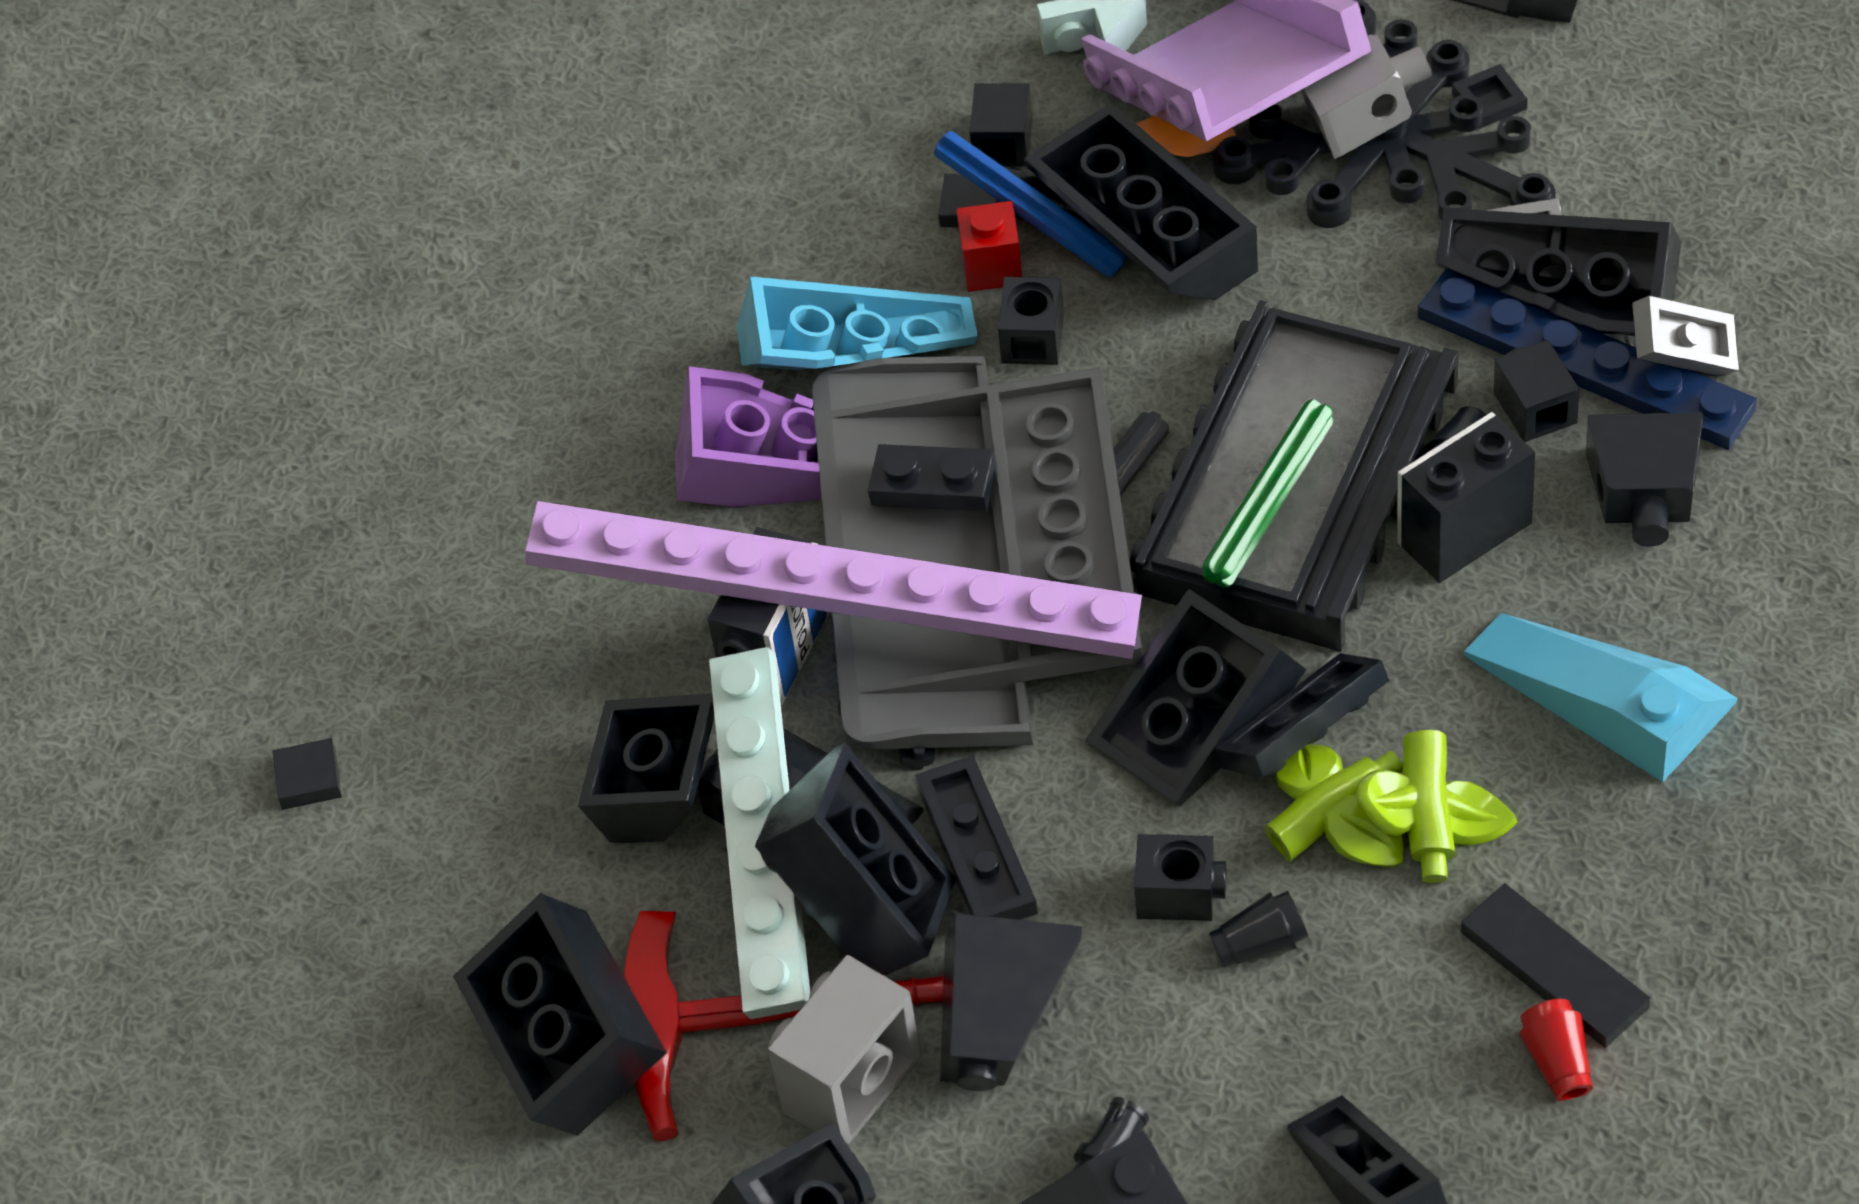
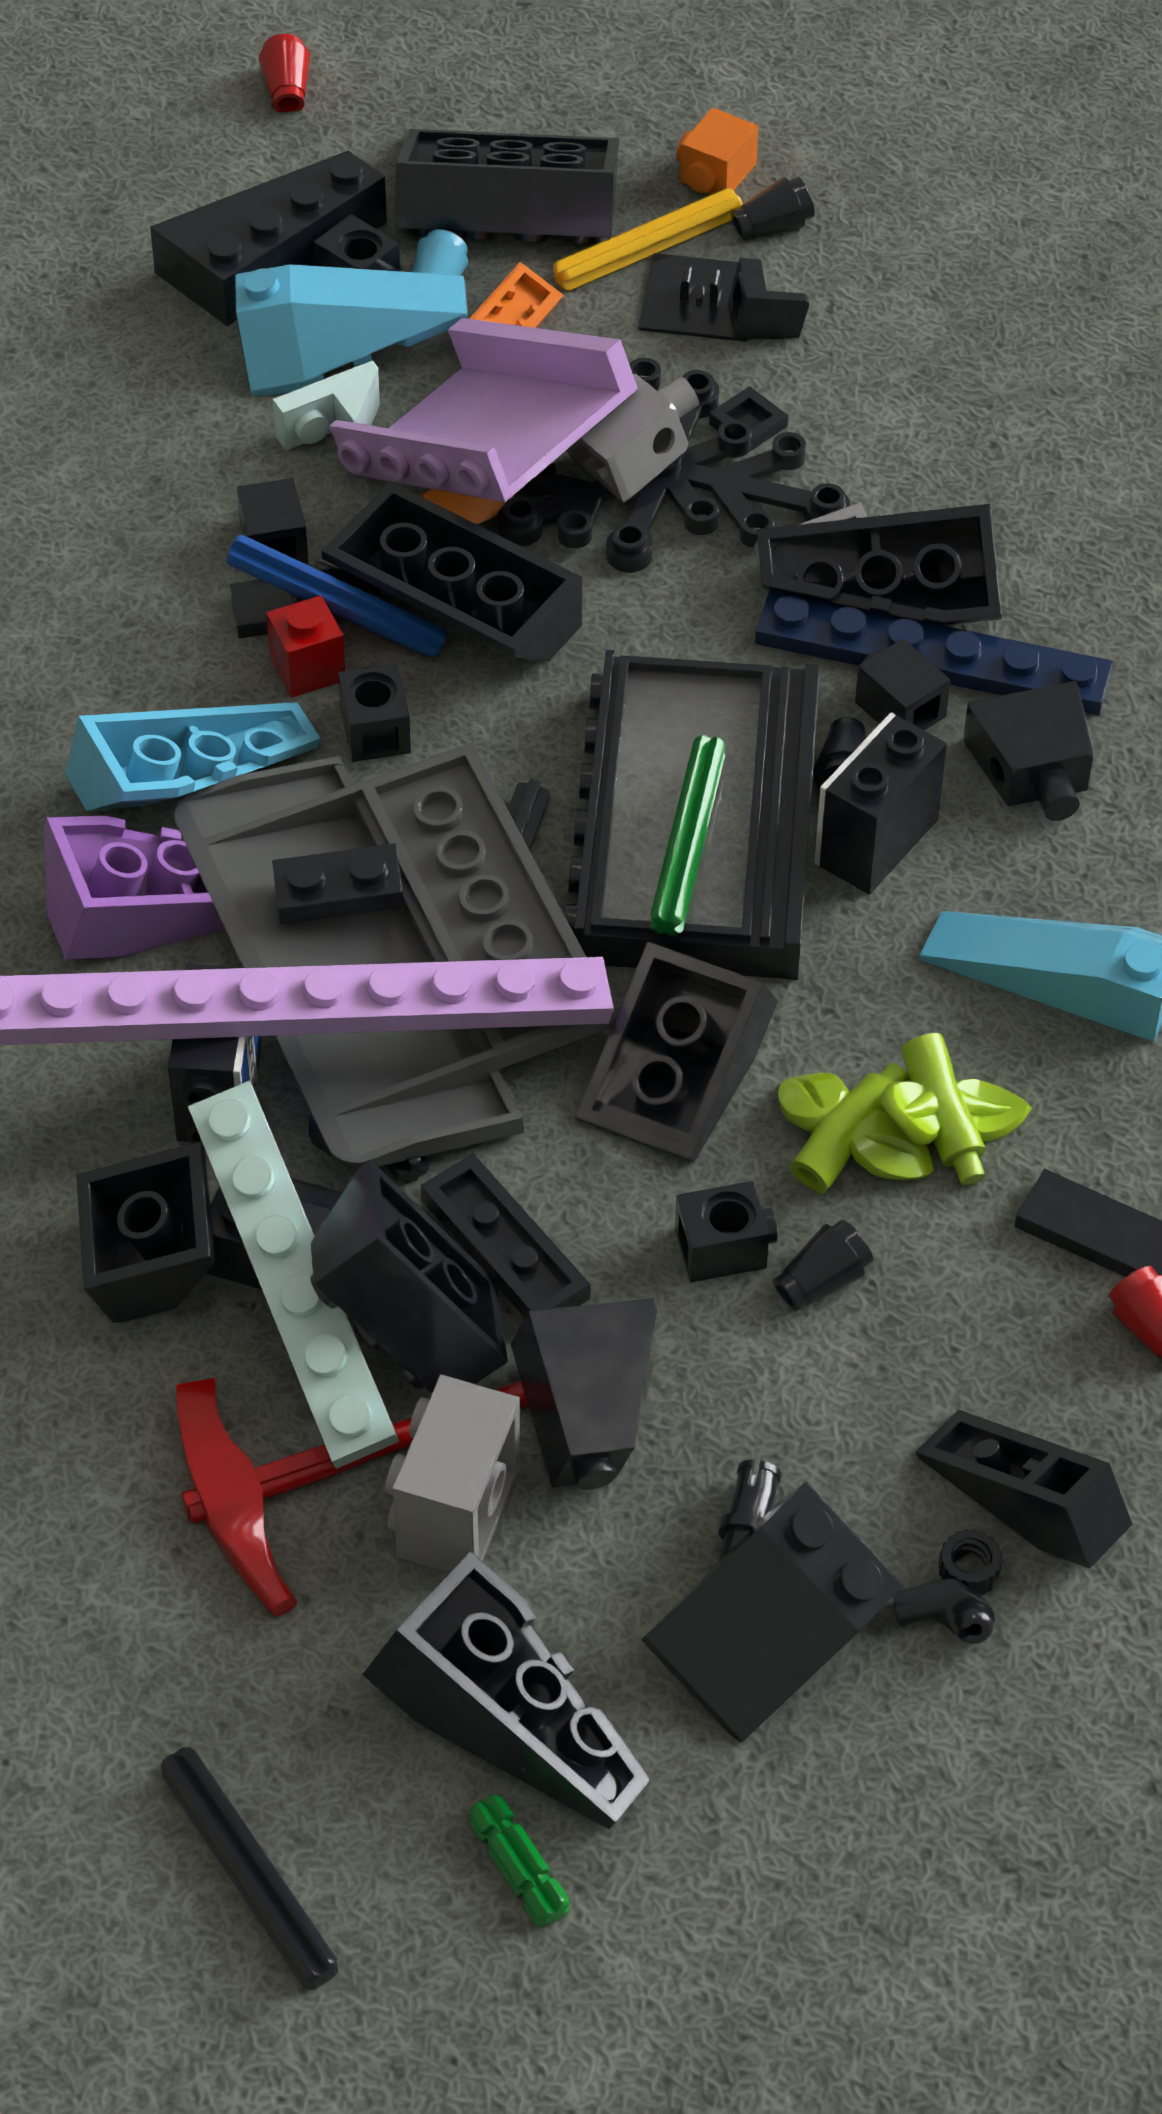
camera: 25 degrees left, 0 degrees up
(559, 1015) = (139, 1507): black brick -> none
(1302, 715) = (790, 1047): black plate -> none
(1685, 336) = (1030, 612): plate -> none

